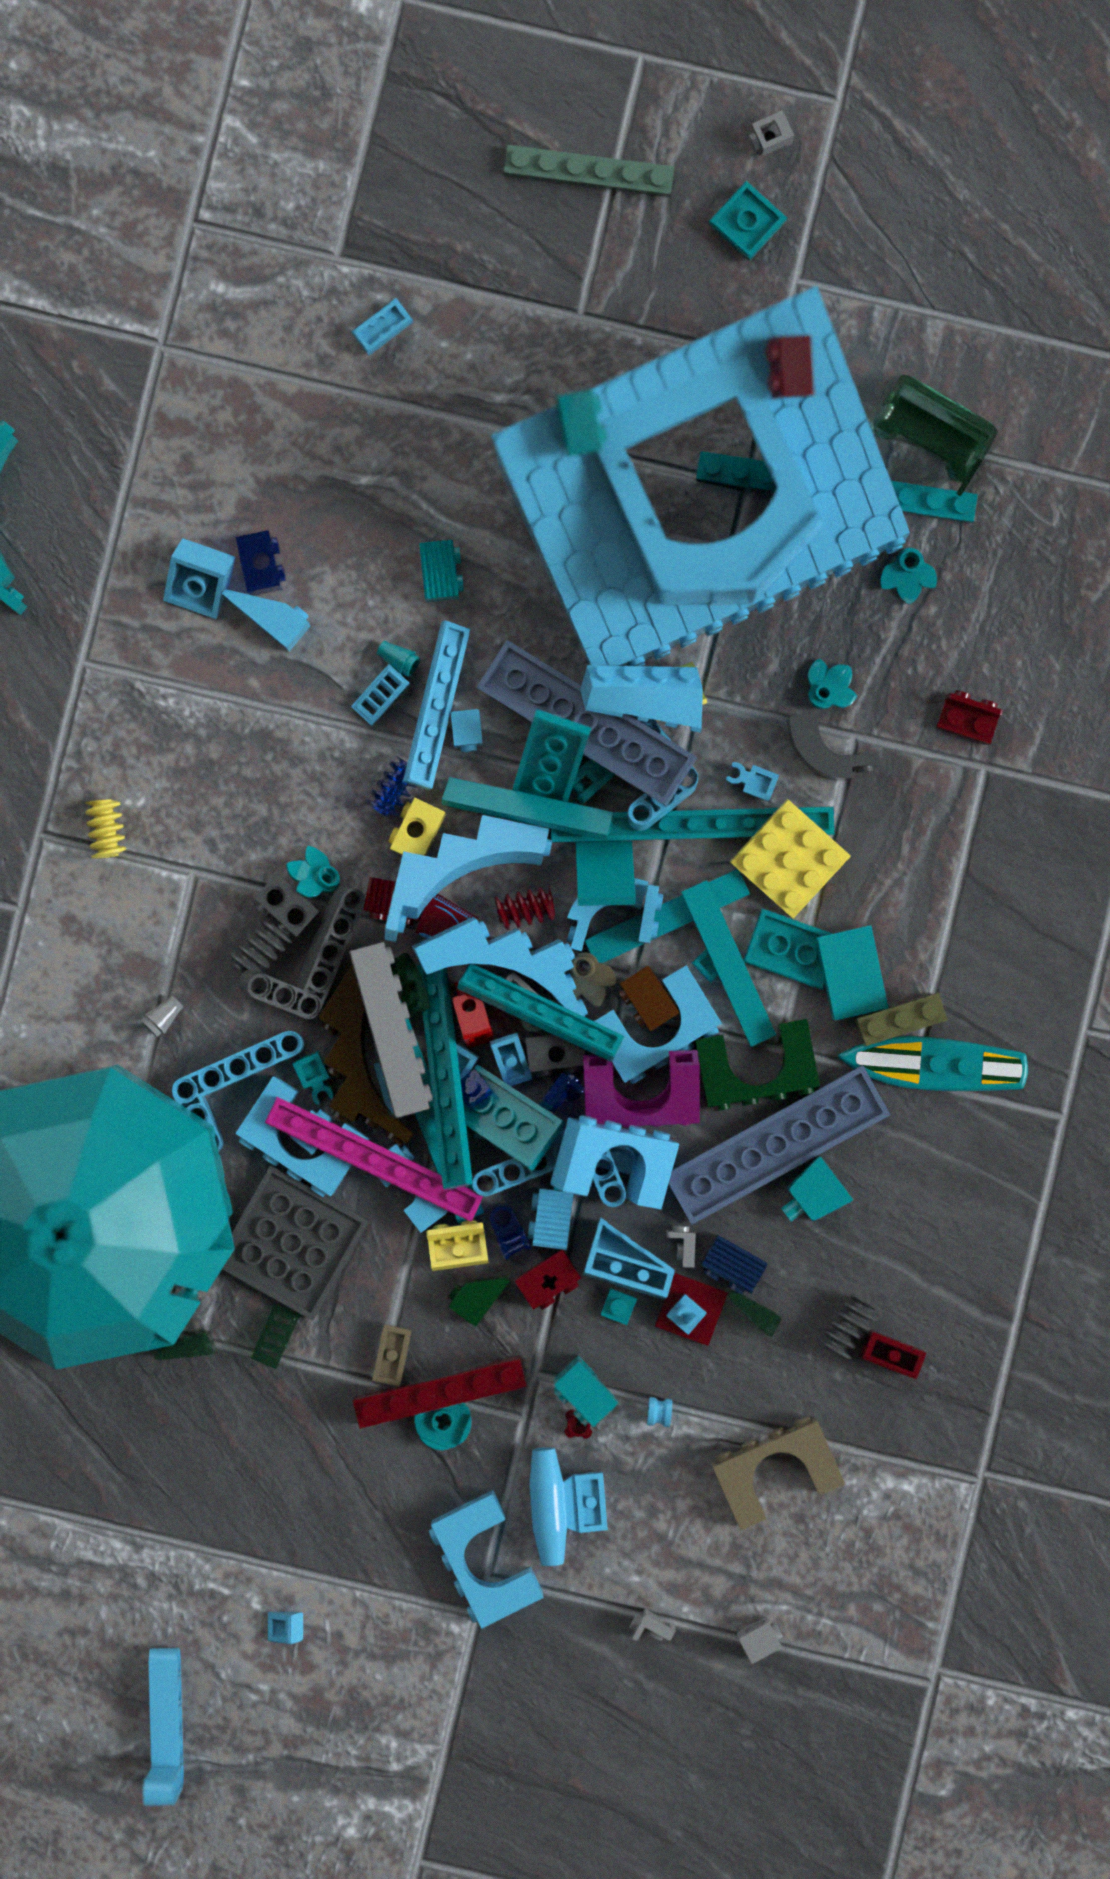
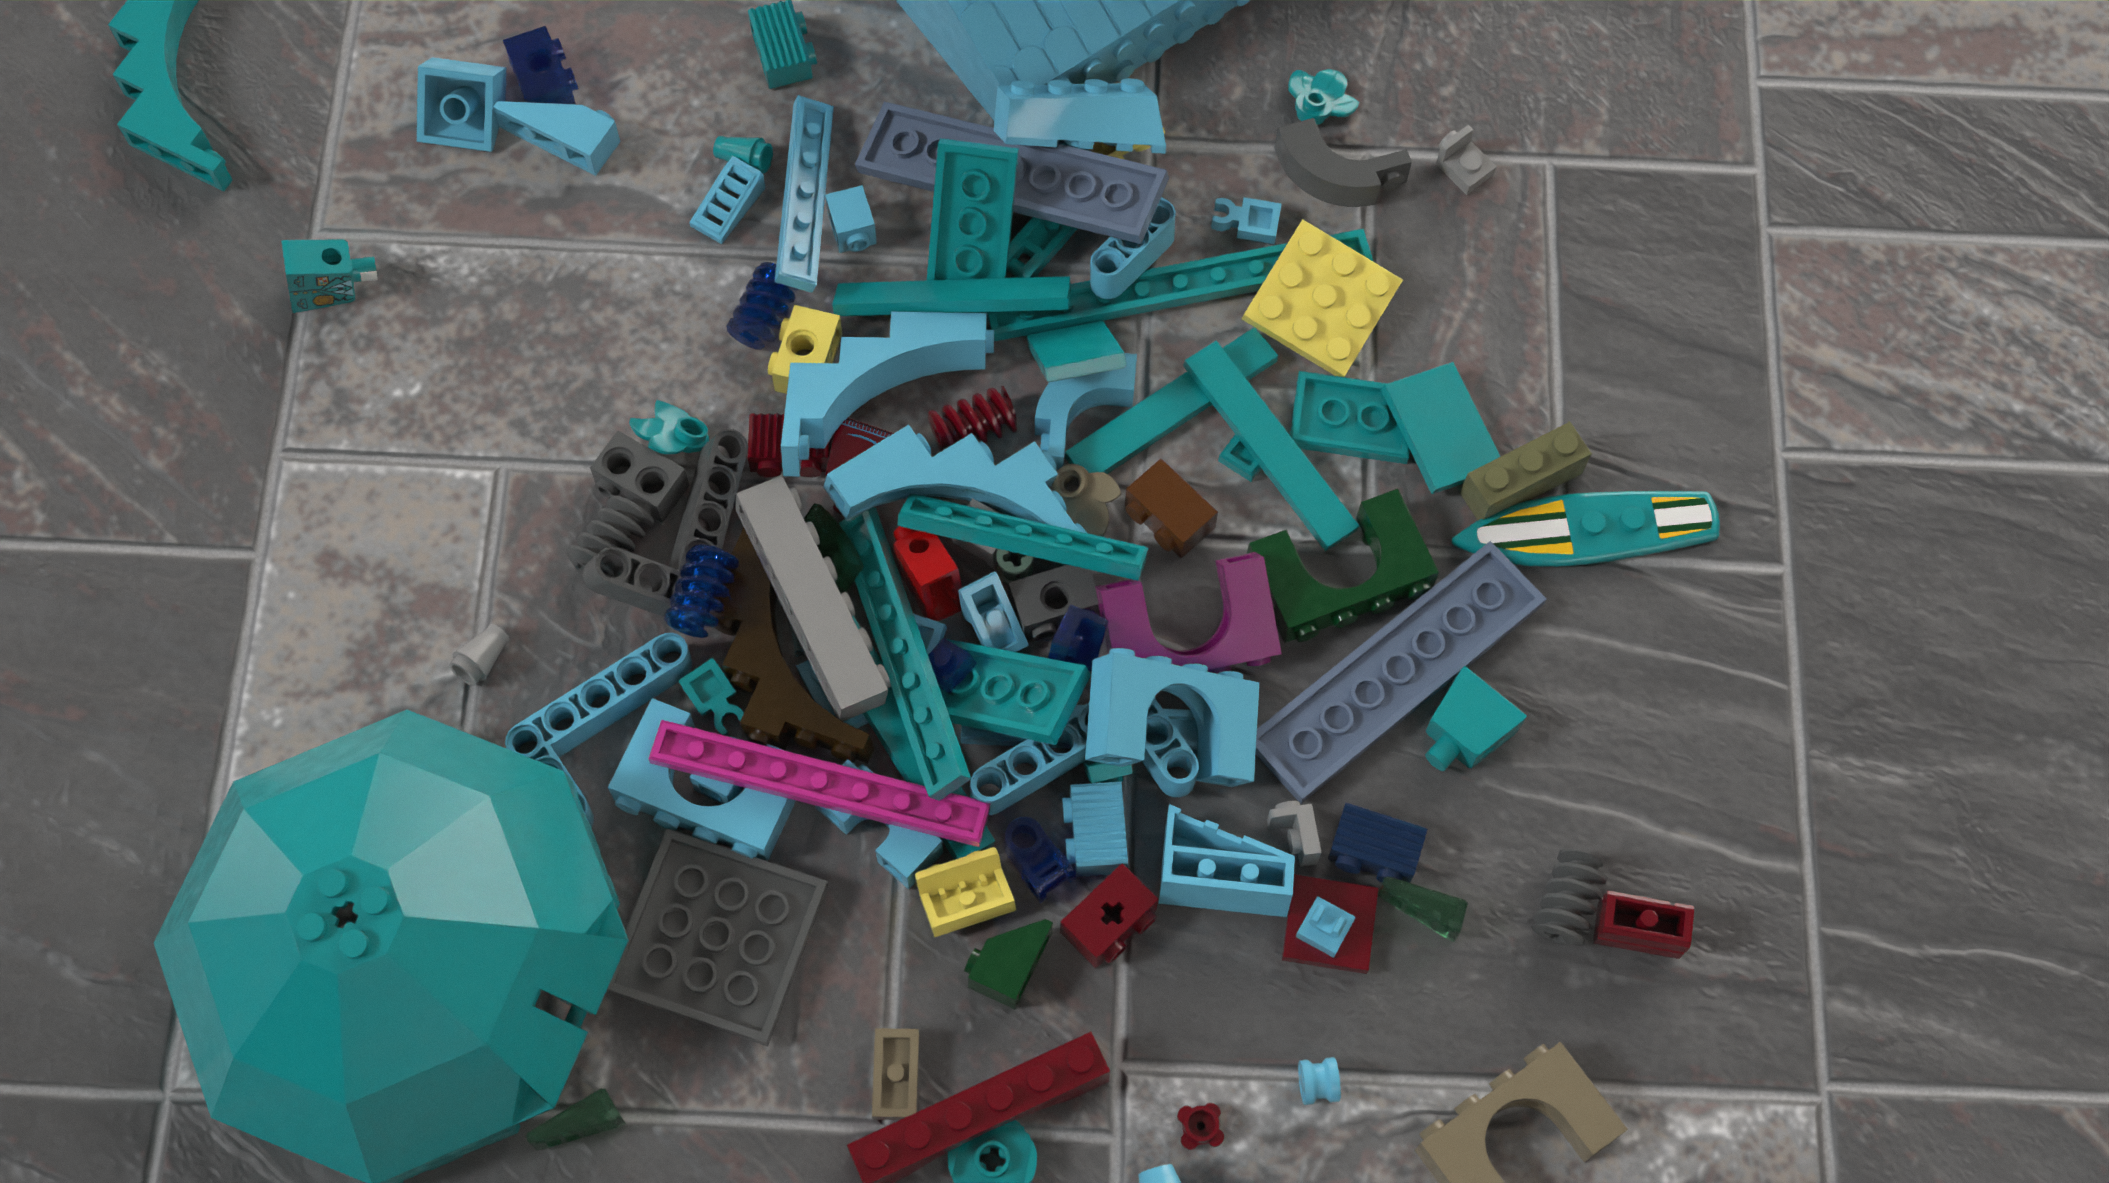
camera: 10 degrees left, 20 degrees down
(75, 711) = (322, 273): none -> teal torso
(105, 828) = (367, 422): light yellow piece -> none
(264, 1358) = (707, 1117): clear green slope -> none
(317, 1010) = (698, 590): none -> clear blue piece
(584, 1391) = (1199, 1058): teal brick -> none
(618, 1306) = (1222, 940): teal plate -> none
(648, 926) = (1147, 381): medium azure plate -> none
(696, 1020) = (1240, 520): medium azure arch -> none
(922, 761) = (1464, 161): none -> light grey bracket
(969, 717) = (1512, 99): dark red bracket -> none

